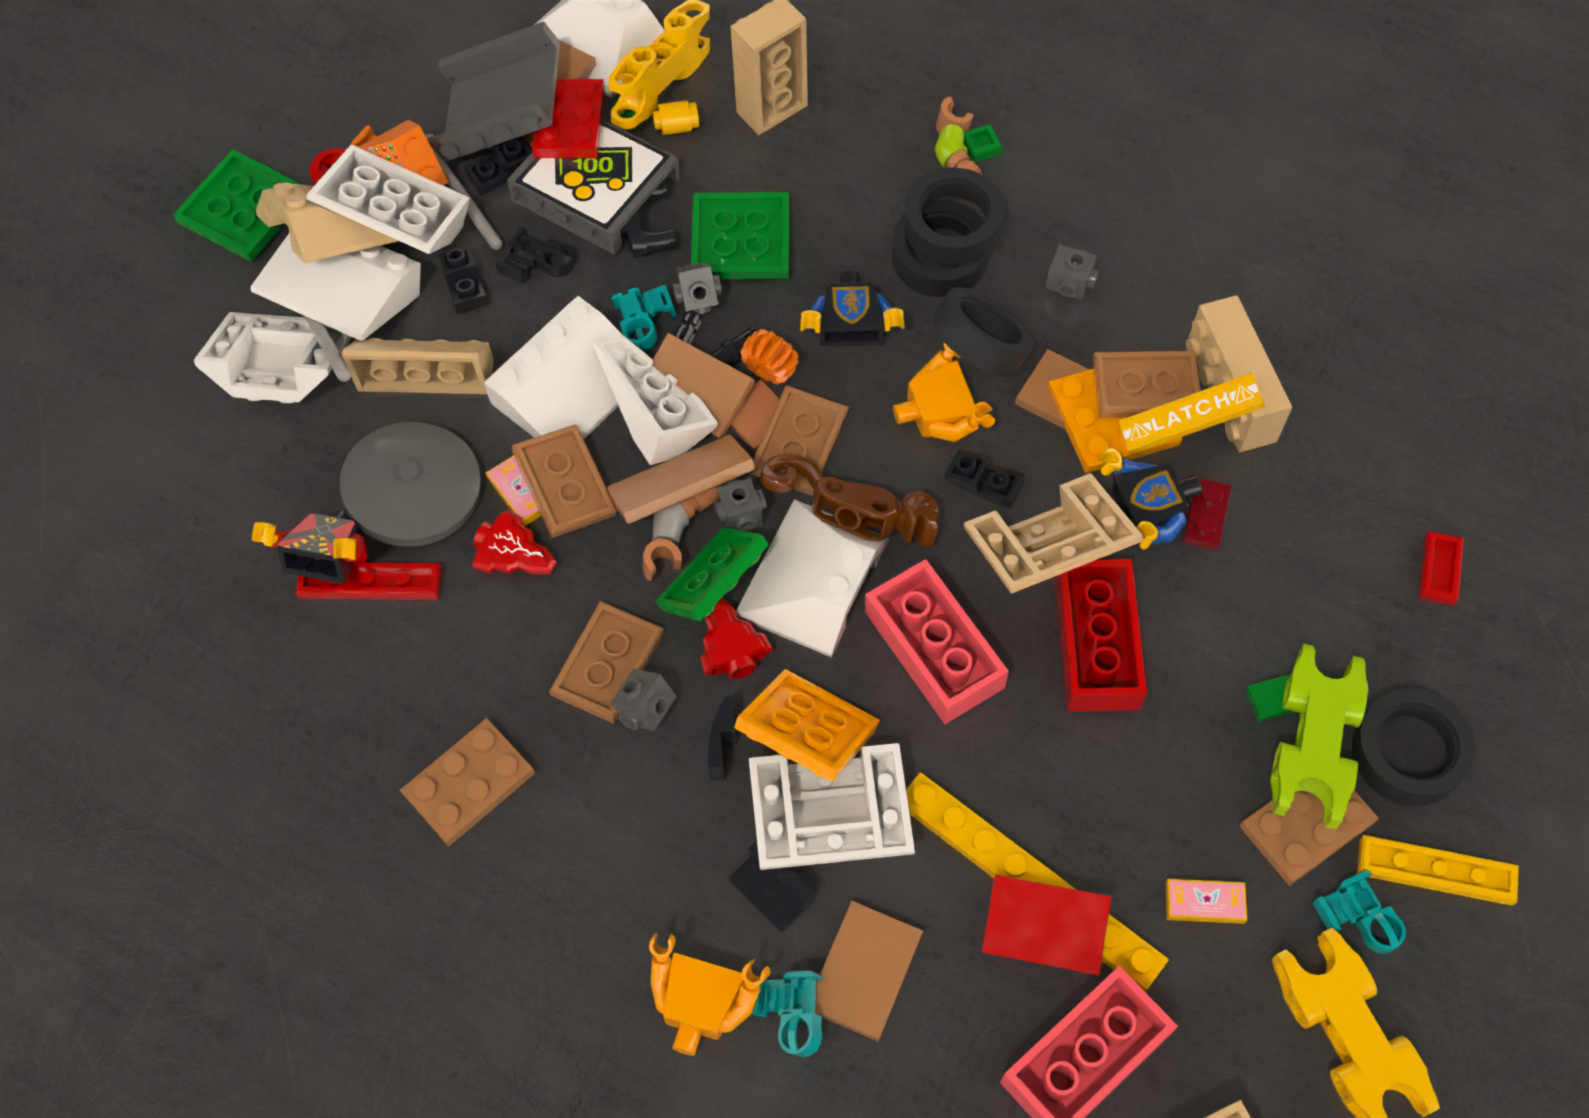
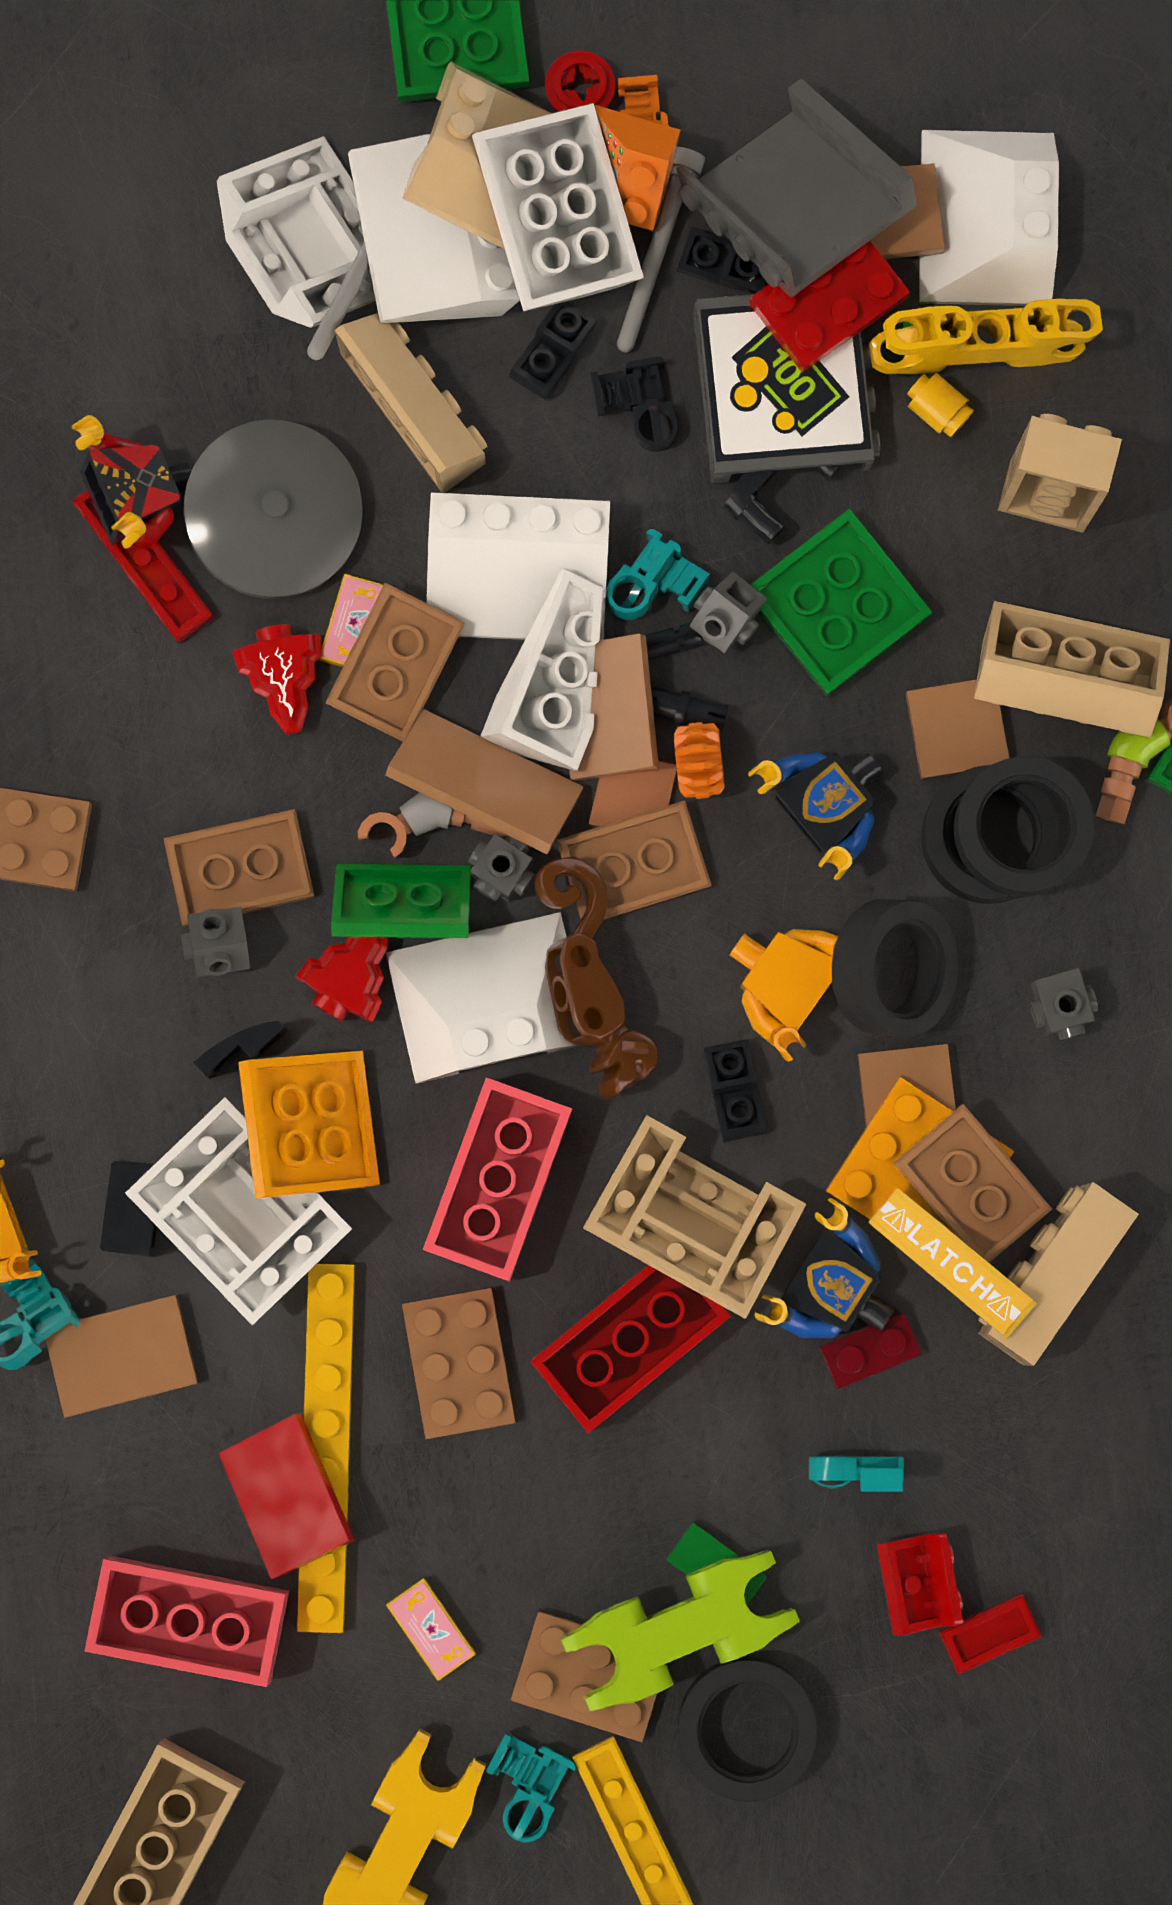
camera: 50 degrees right, 20 degrees up
(863, 228) = (954, 730): none -> medium nougat tile
(882, 141) = (1072, 669): none -> tan brick
(1035, 756) = (458, 1363): none -> medium nougat plate
(1276, 572) = (874, 1472): none -> teal piece
(1383, 578) = (920, 1583): none -> red bracket

